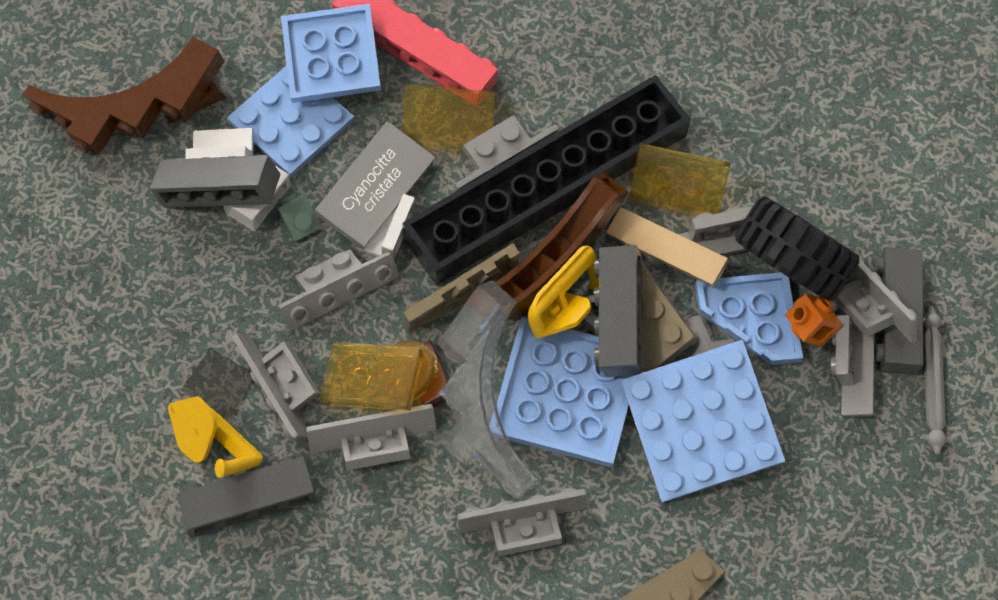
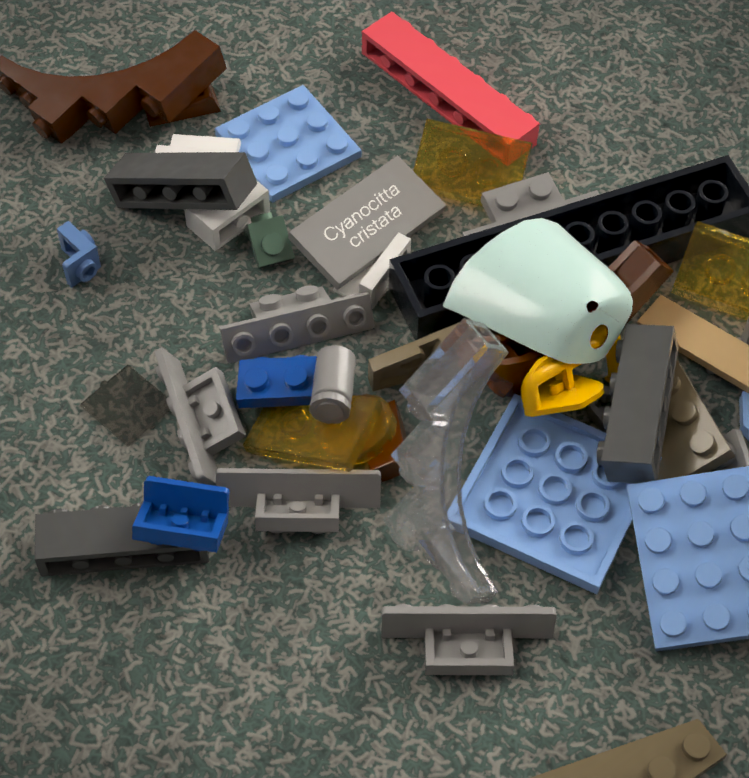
camera: 15 degrees right, 10 degrees down
(146, 254) = (82, 252): none -> medium blue bracket
(196, 427) = (84, 441): yellow piece -> none
(292, 474) = (182, 514): none -> blue bracket
(330, 53) = (348, 76): light blue plate -> none
(336, 344) = (275, 381): none -> blue bracket
(382, 342) = (333, 384): none -> light grey piece
(525, 231) = (536, 291): none -> light aqua piece

